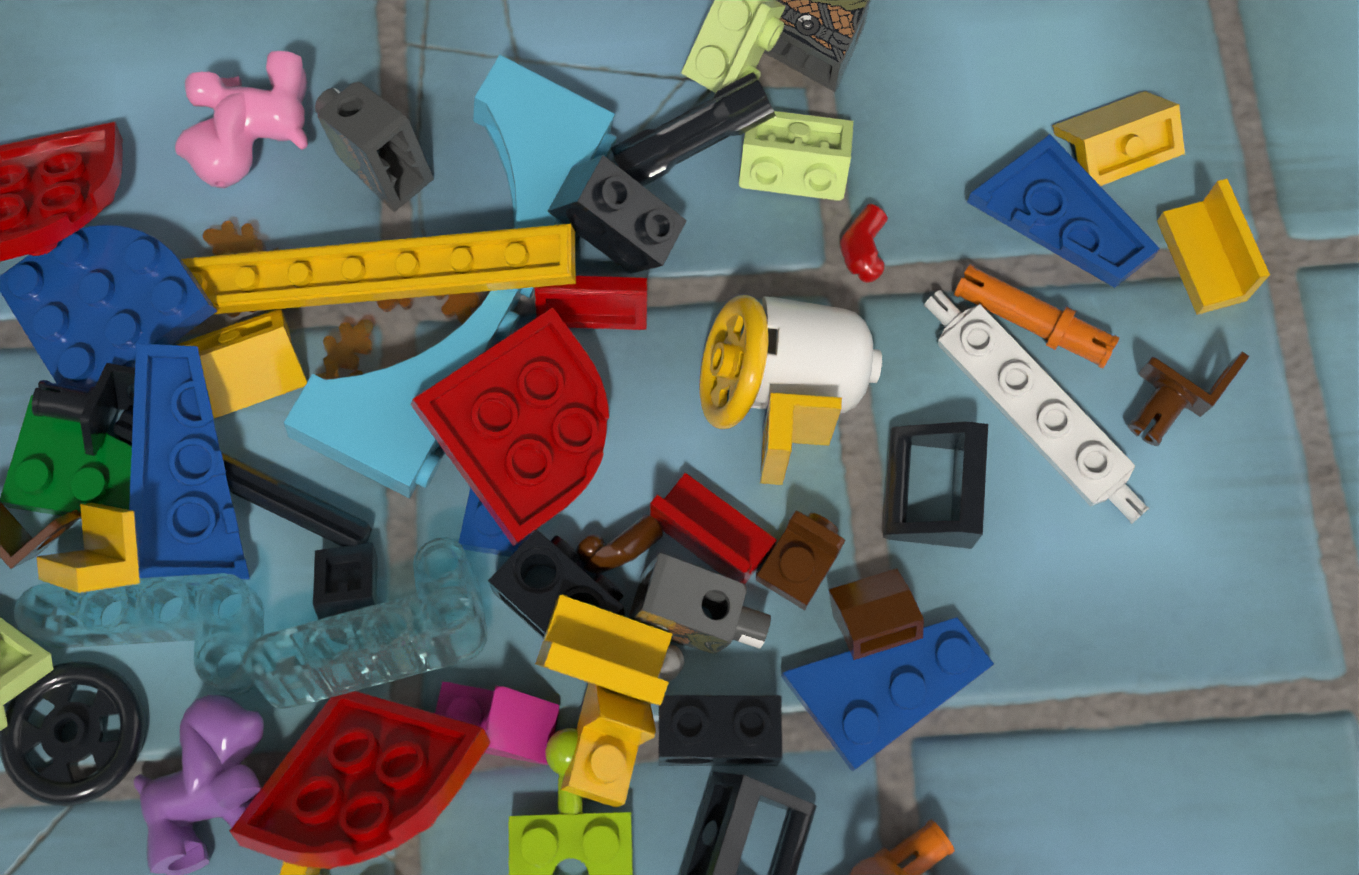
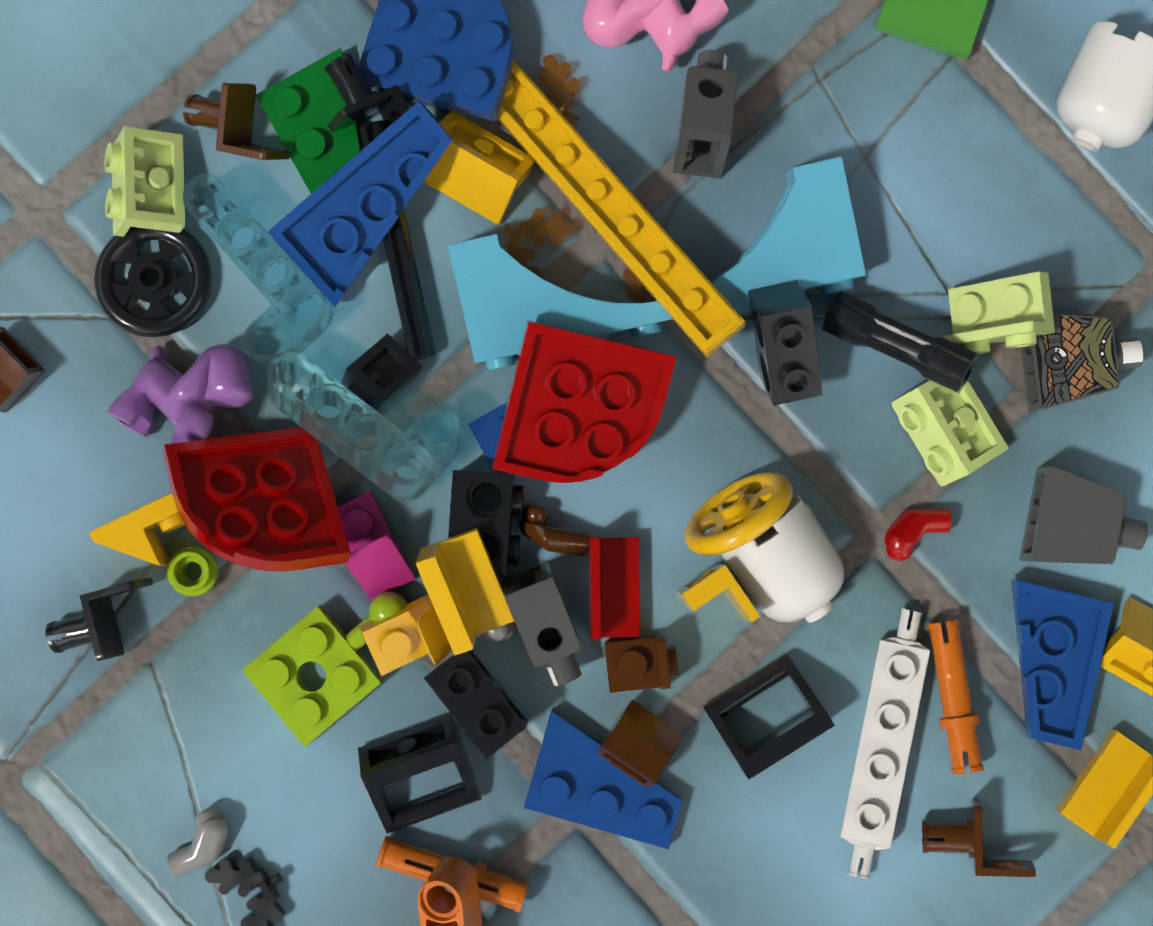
camera: 55 degrees right, 15 degrees up
(107, 556) = (264, 205): yellow panel -> none
(597, 302) = (712, 379): red tile -> none
(955, 114) = (1077, 521): none -> dark grey torso

